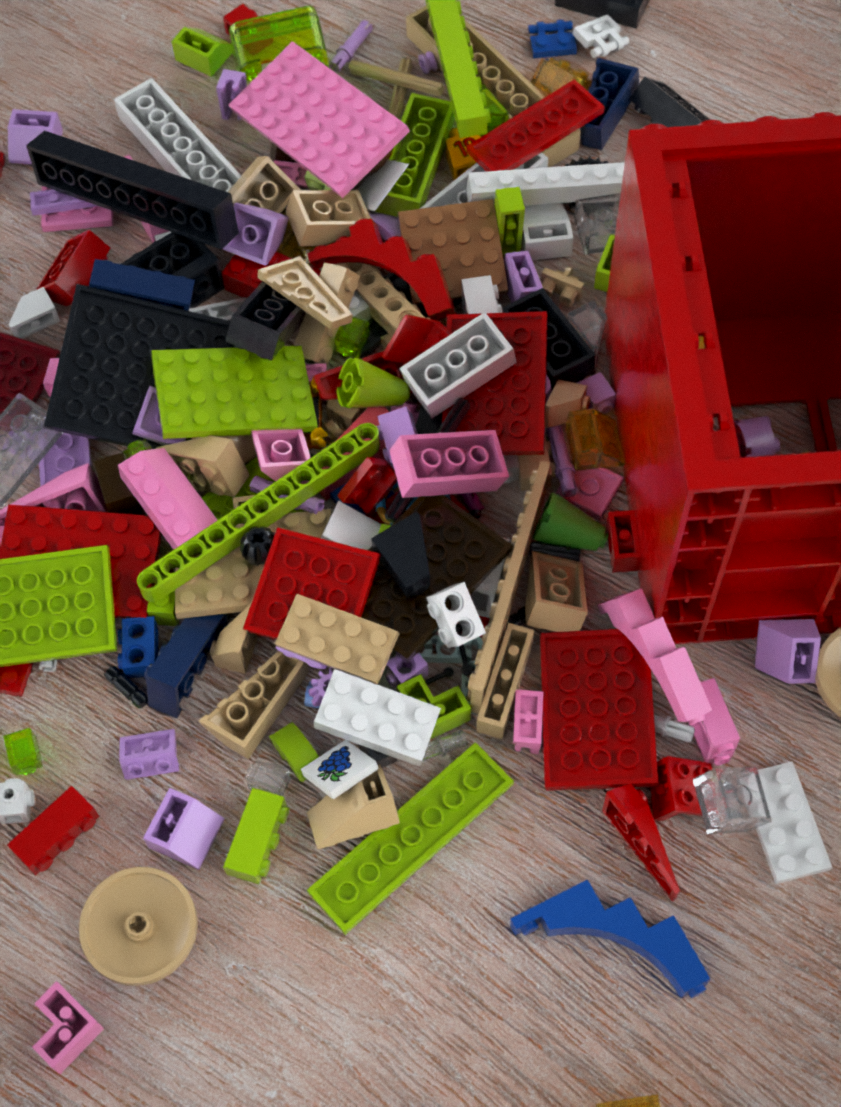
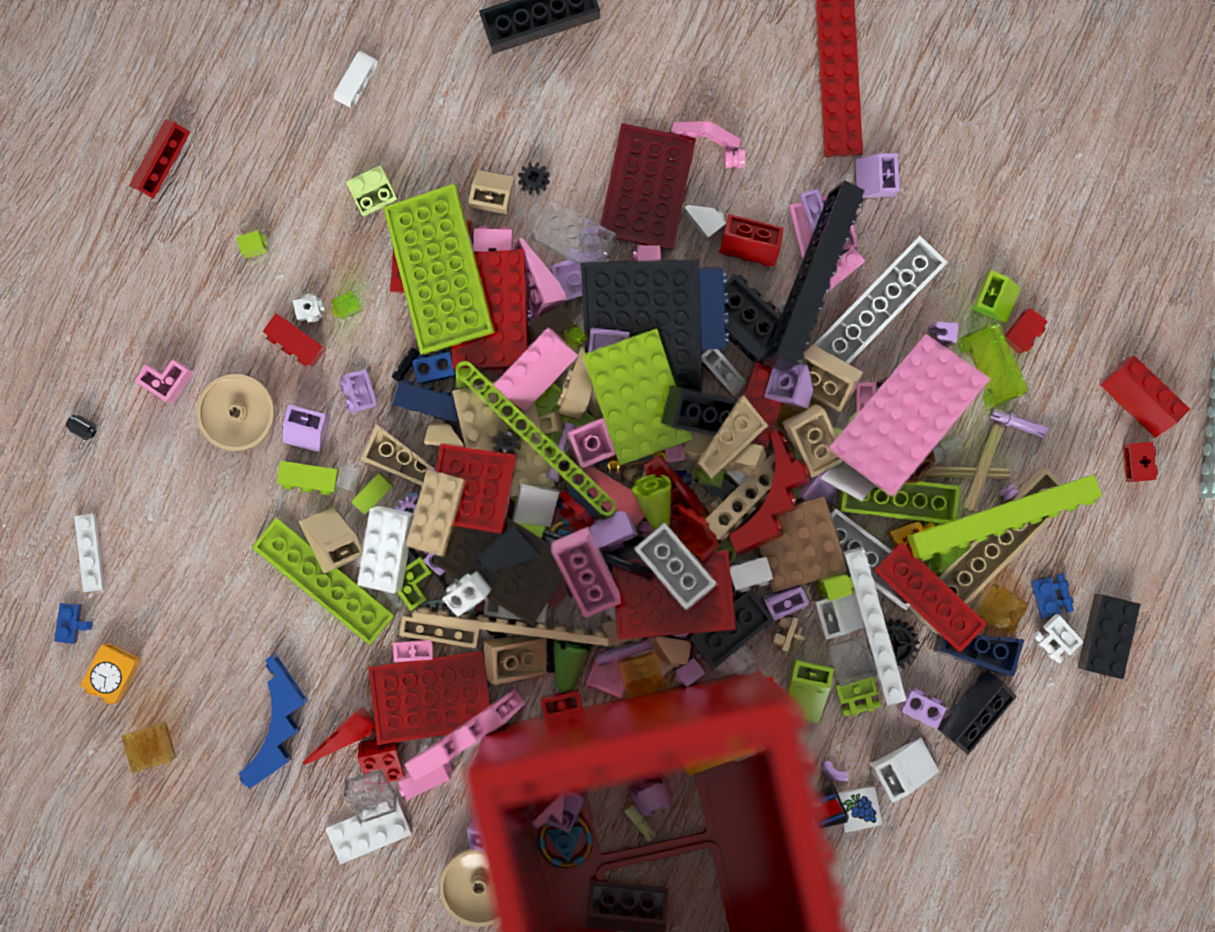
camera: 80 degrees right, 25 degrees up
(339, 769) = (352, 526): white tile -> none

